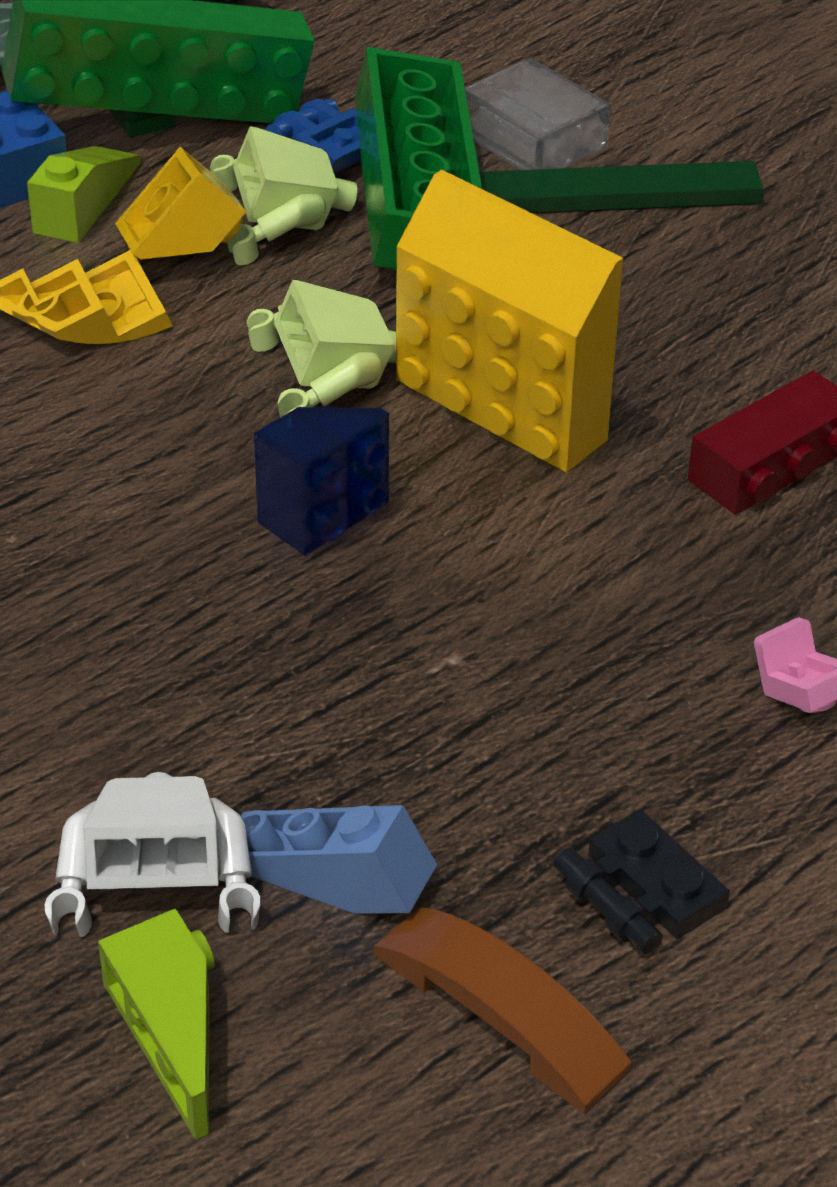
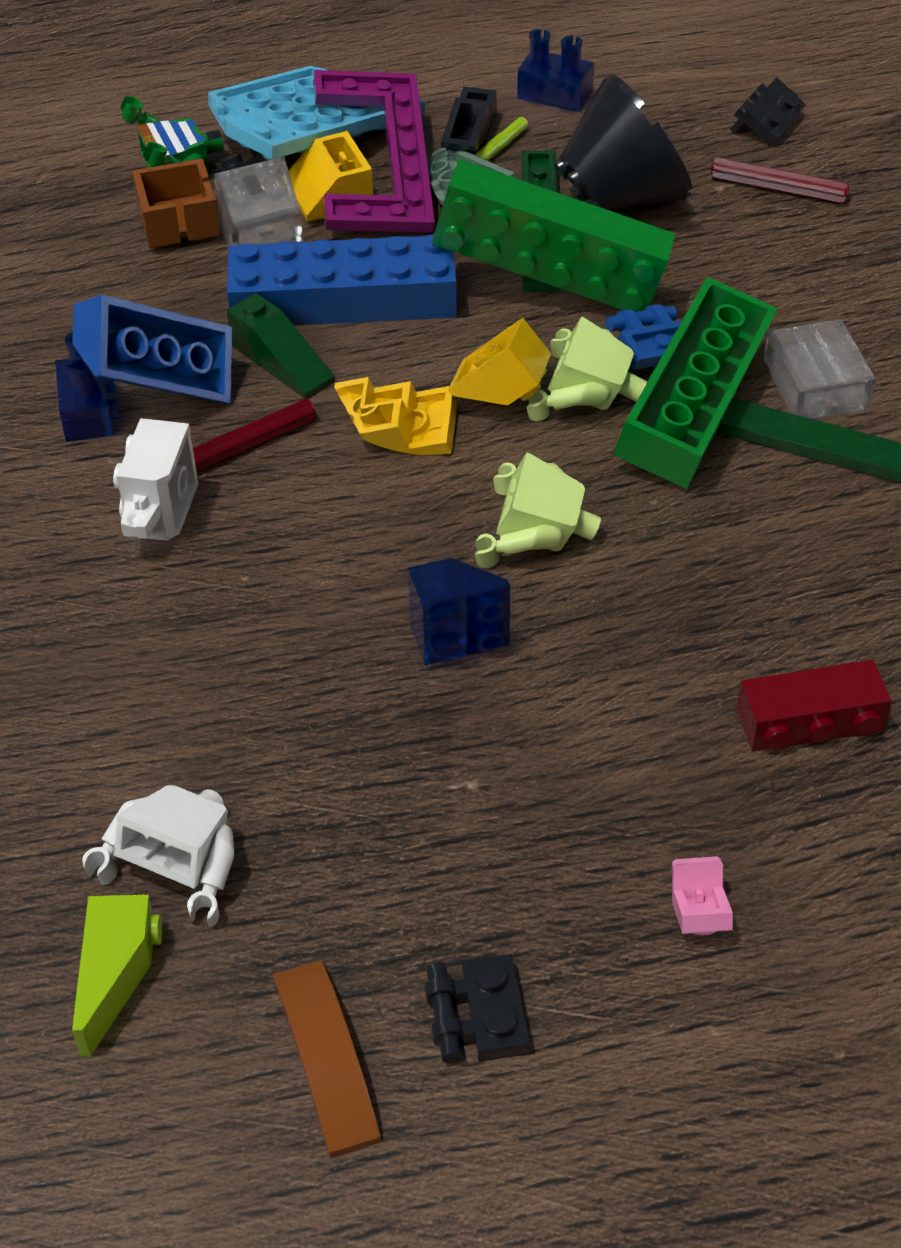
camera: 30 degrees right, 5 degrees up
(75, 190) = (453, 321): lime slope -> none
(342, 856) = (285, 900): medium blue slope -> none
(508, 320) = (645, 543): yellow slope -> none

